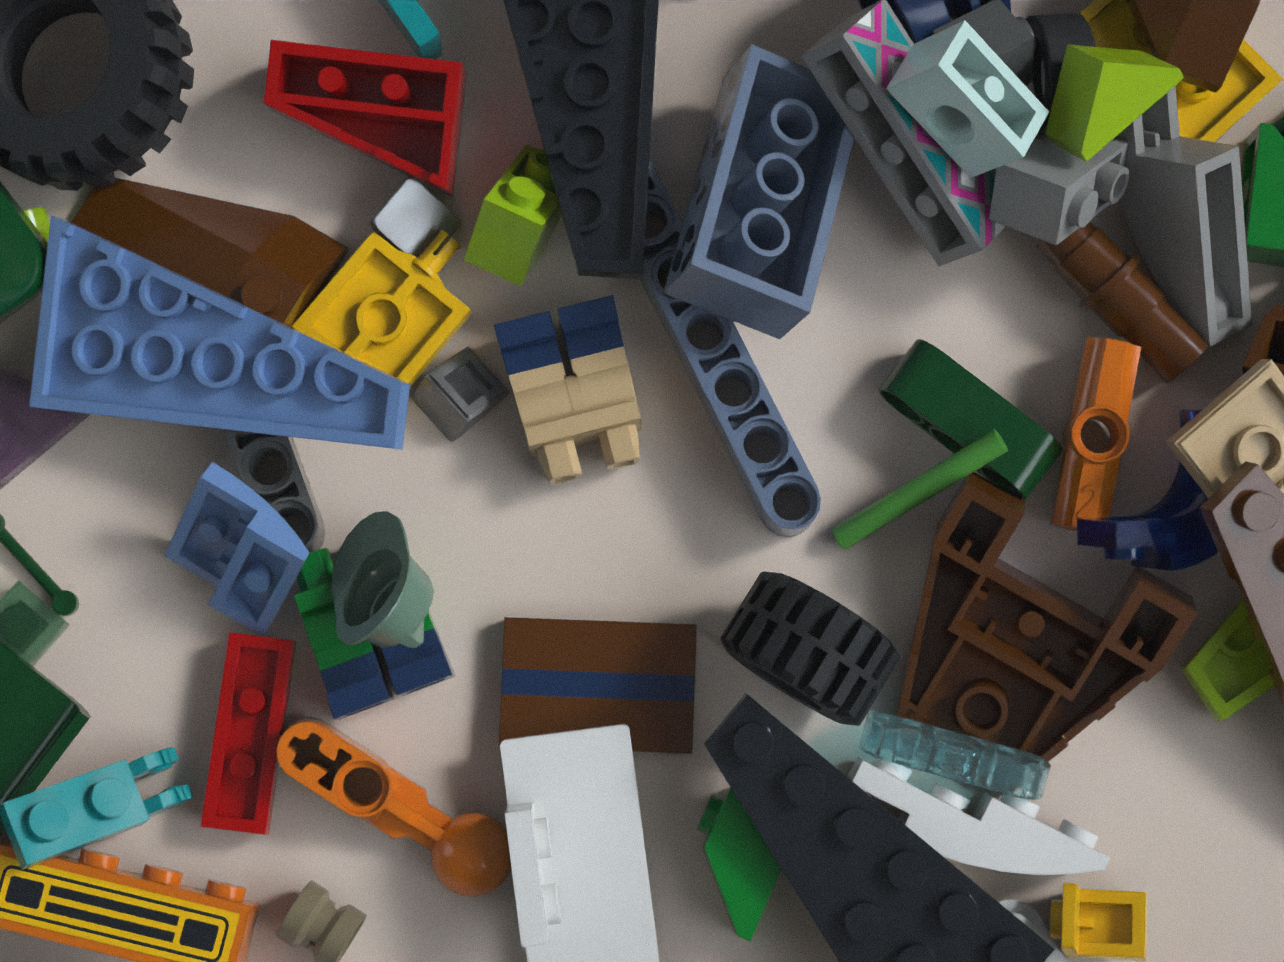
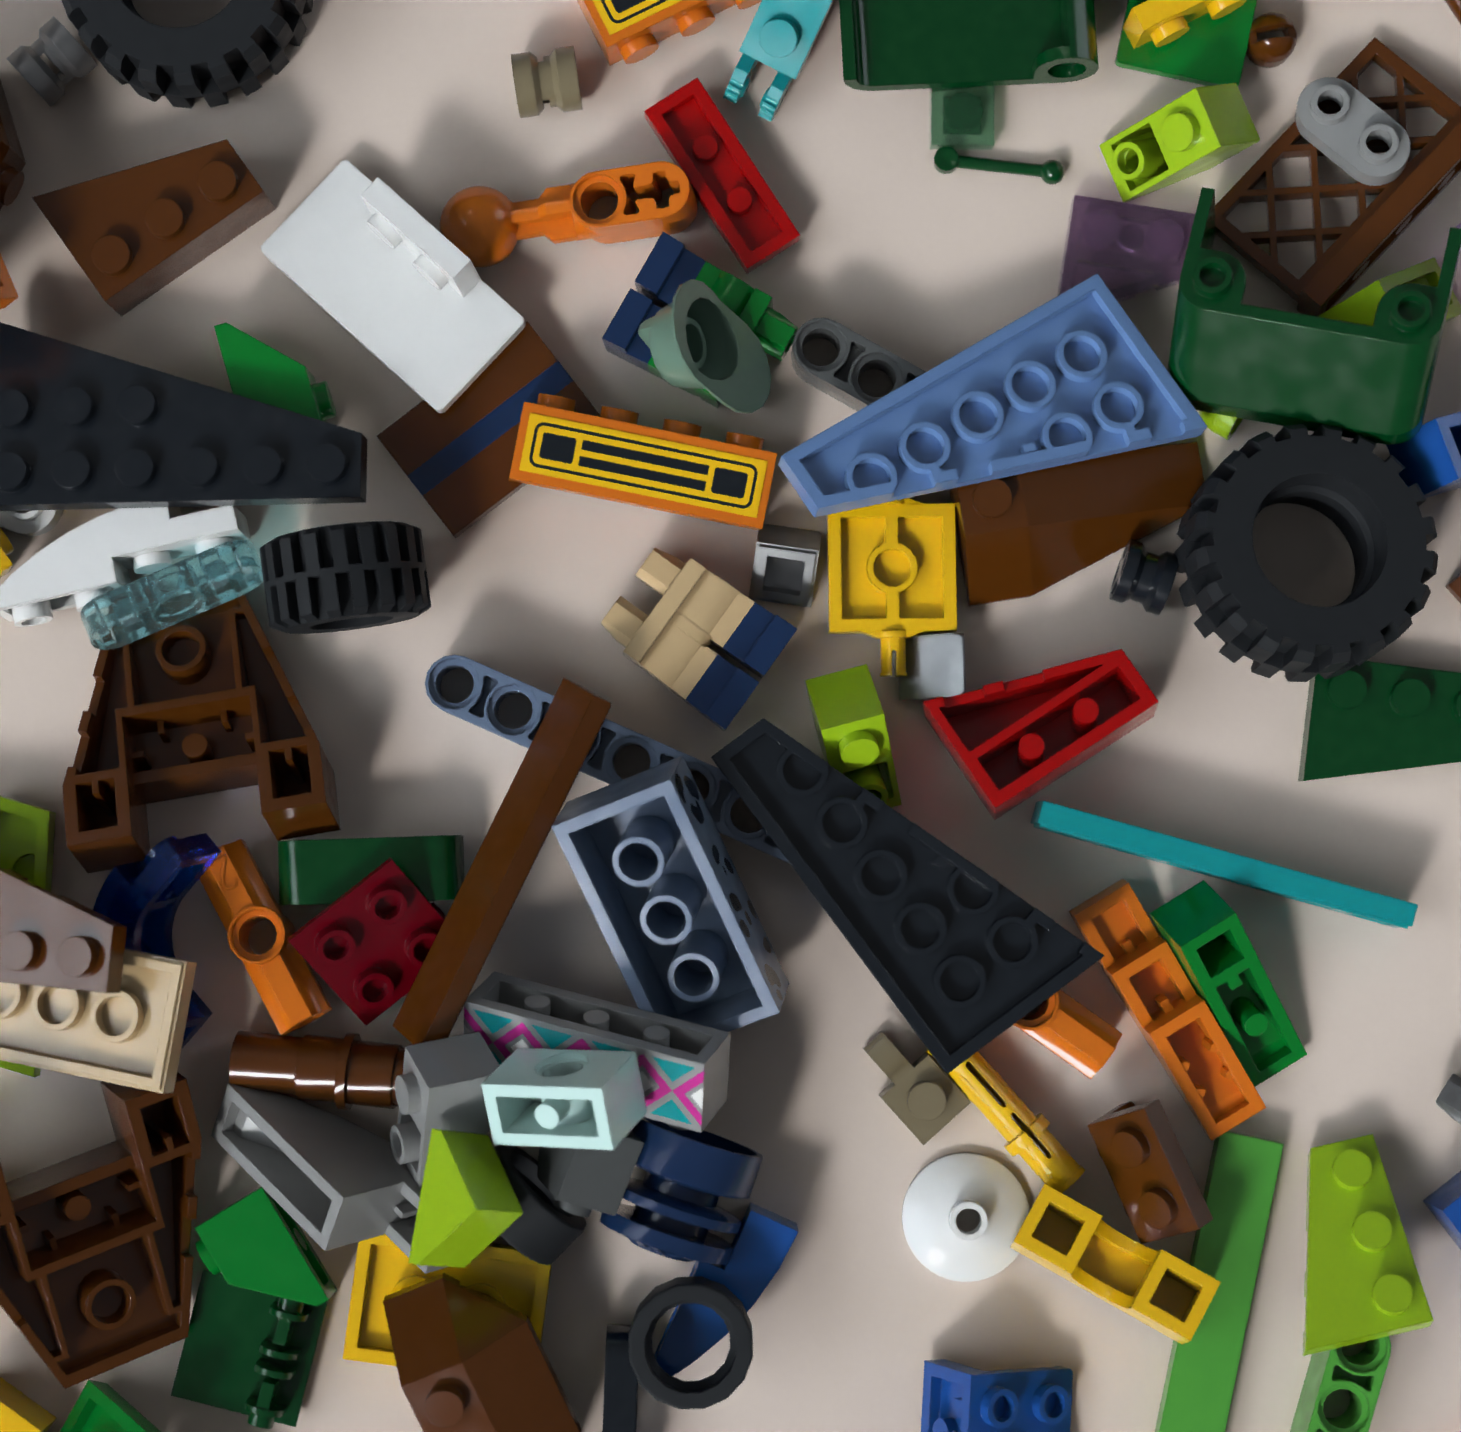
camera: 140 degrees right, 5 degrees up
(198, 155) = (1144, 577): none -> black wheel
(238, 547) = (845, 302): medium blue slope -> none
(505, 551) = (642, 464): none -> brick
(867, 328) = (502, 863): none -> reddish brown tile
(919, 489) = (364, 778): bright green bar -> none
(1010, 355) = (371, 940): none -> dark red hinge

